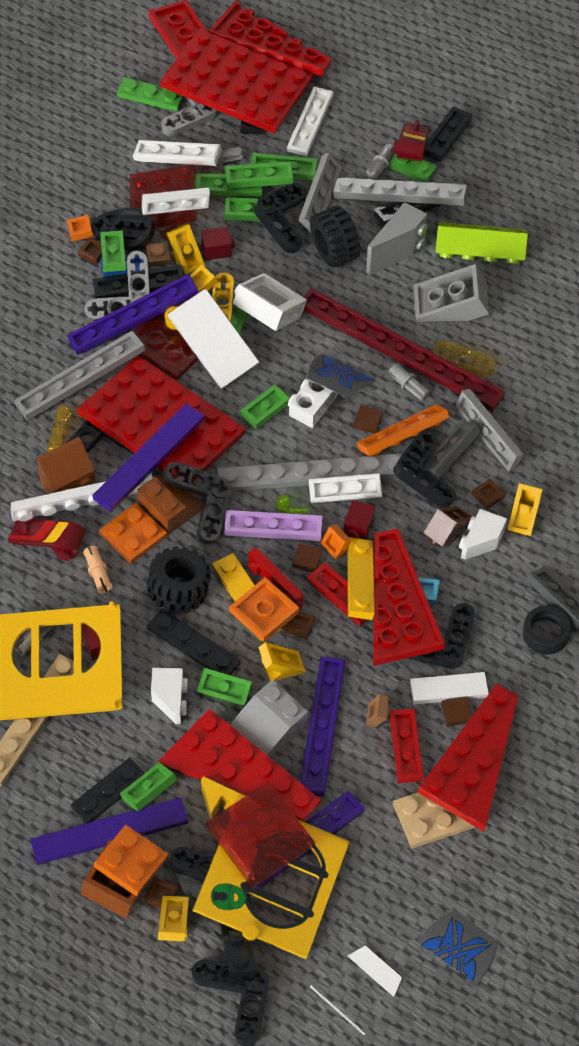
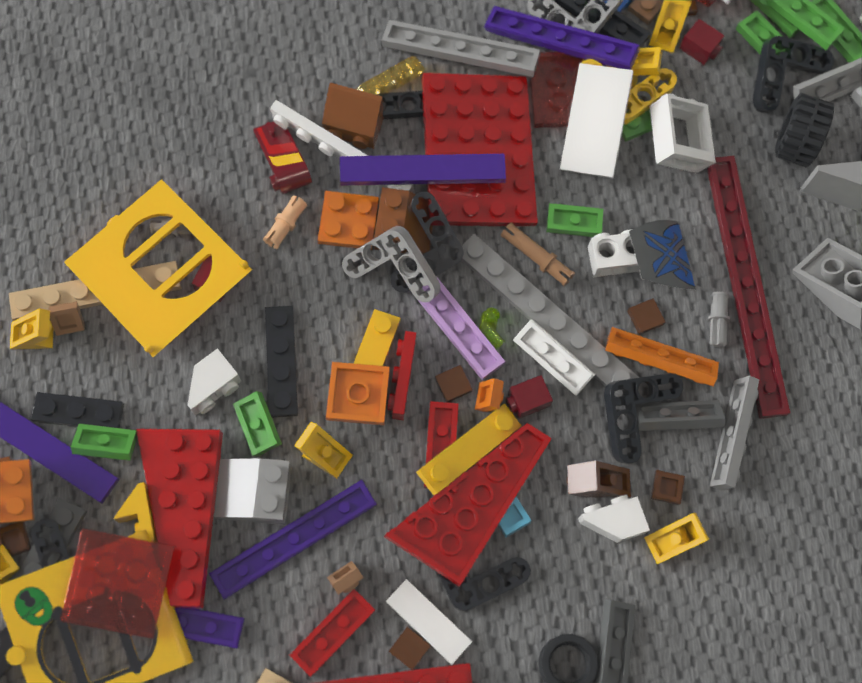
camera: 45 degrees right, 15 degrees up
(24, 774) = (32, 331): none -> yellow slope
(35, 747) = (66, 318): none -> medium nougat plate
(175, 594) = (327, 274): black tyre -> none
(188, 515) = (392, 251): none -> light grey beam
(267, 444) = (546, 261): none -> medium nougat pin
(300, 625) = (380, 435): reddish brown tile -> none
(471, 354) = (796, 336): clear yellow beam -> none

